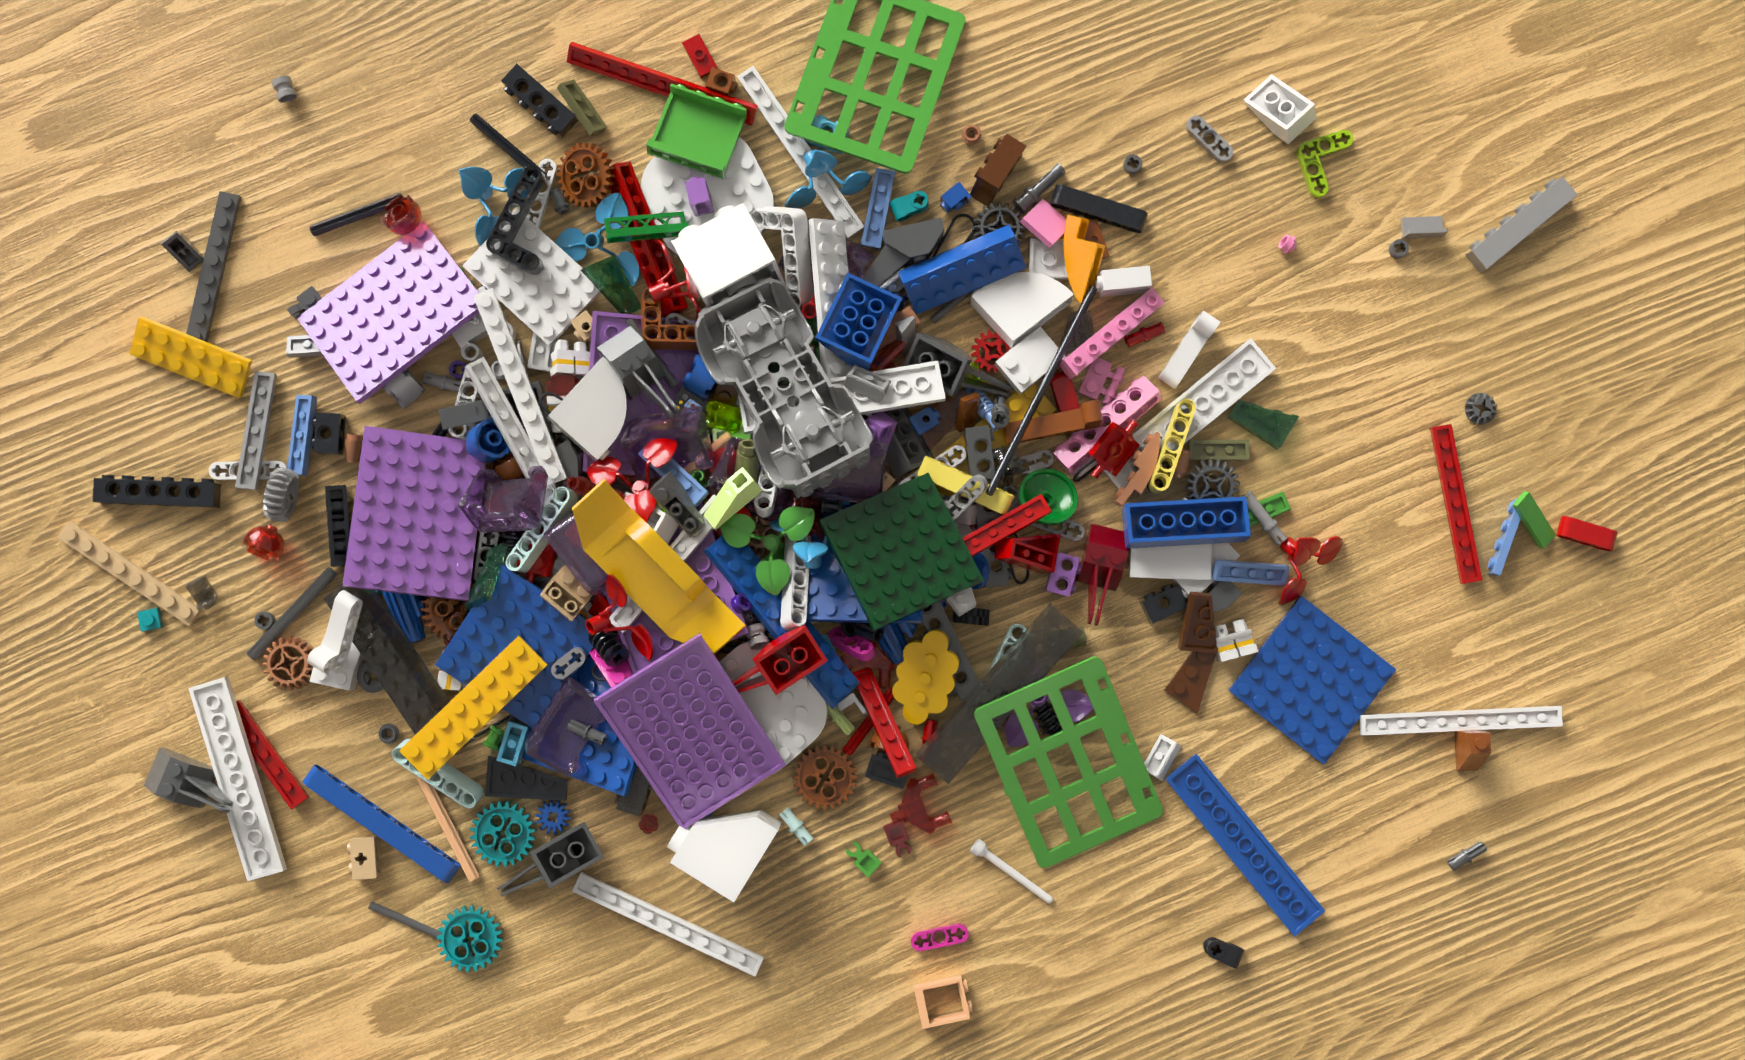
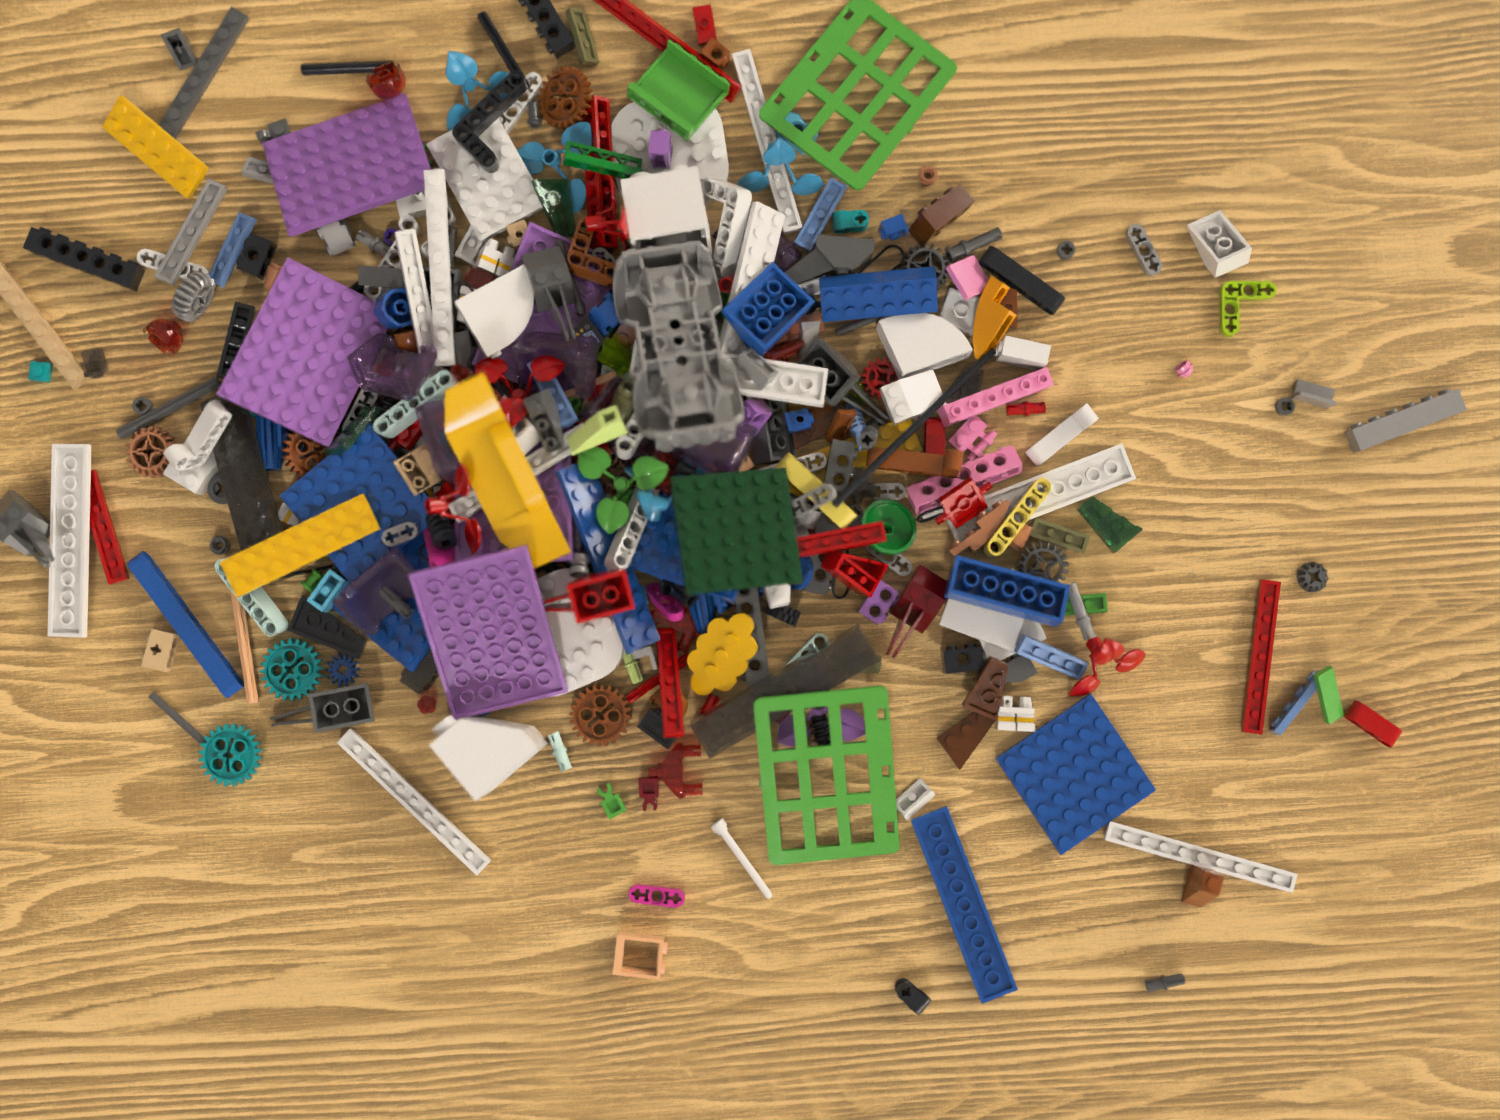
camera: 20 degrees right, 0 degrees up
(740, 603) = (573, 530): dark purple bush -> none

